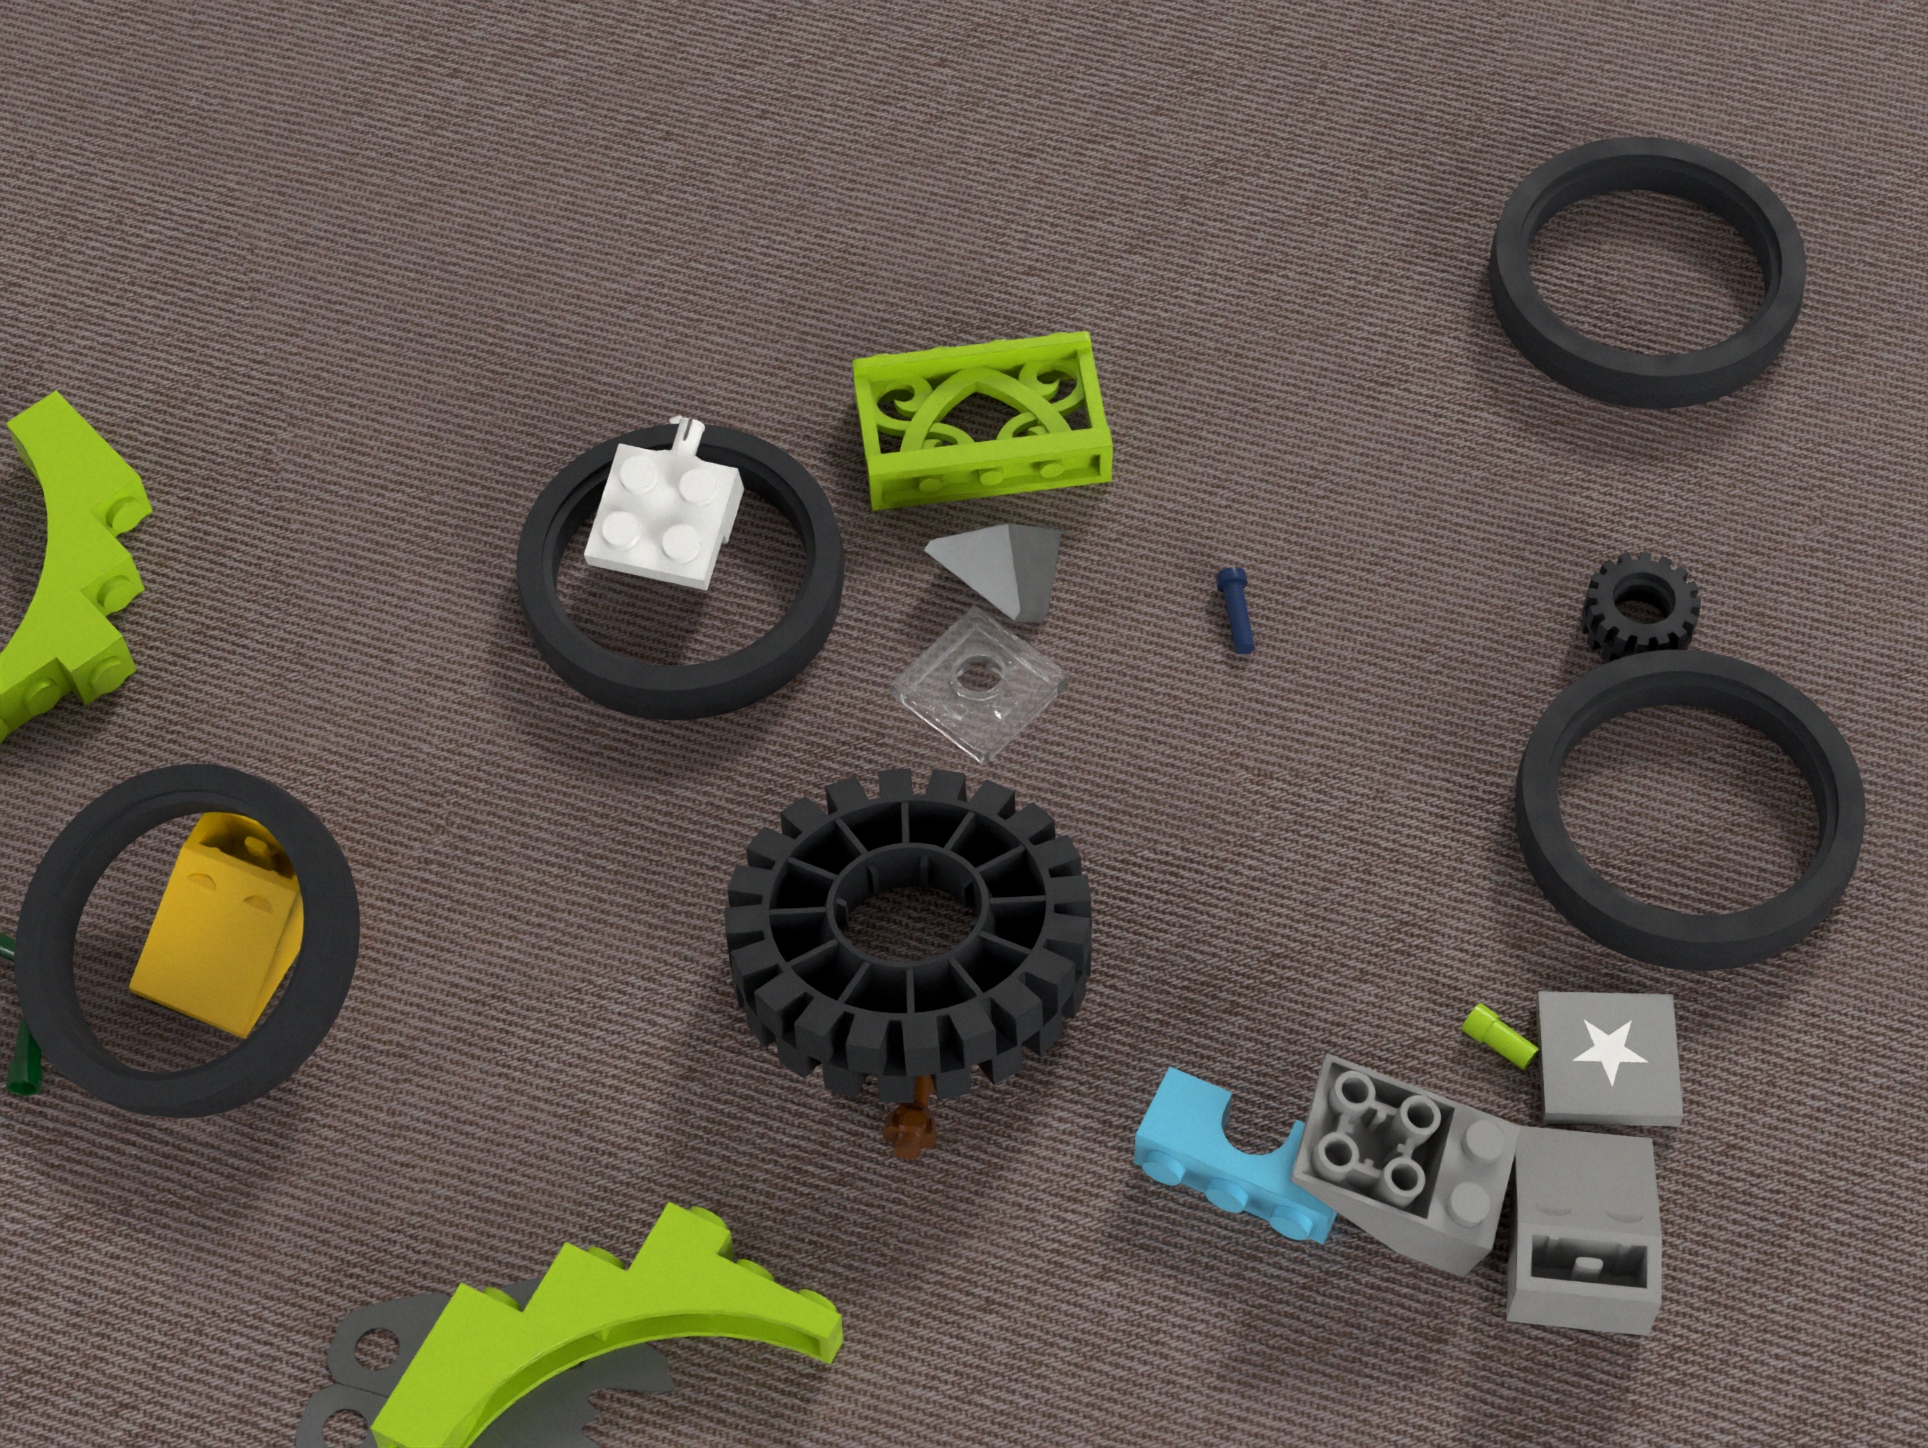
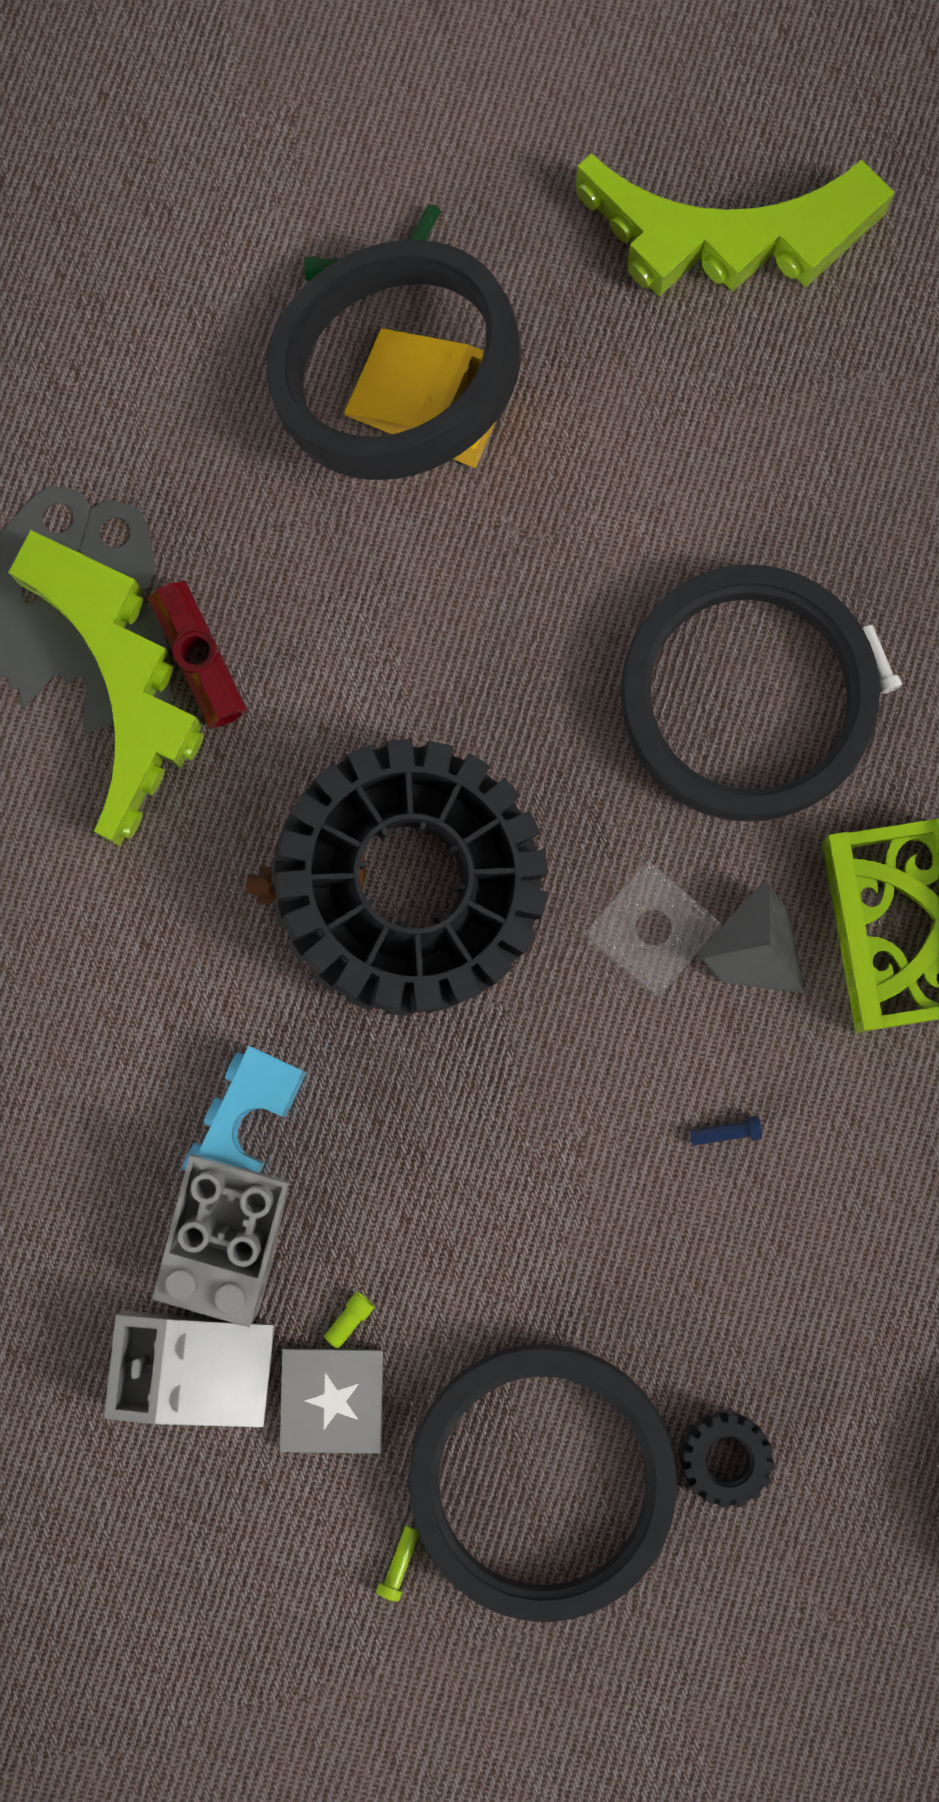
camera: 90 degrees right, 25 degrees up
(532, 1234) = (185, 629): none -> dark red piece
(665, 512) = (781, 674): white plate -> none
(1842, 987) = (390, 1587): none -> lime piece

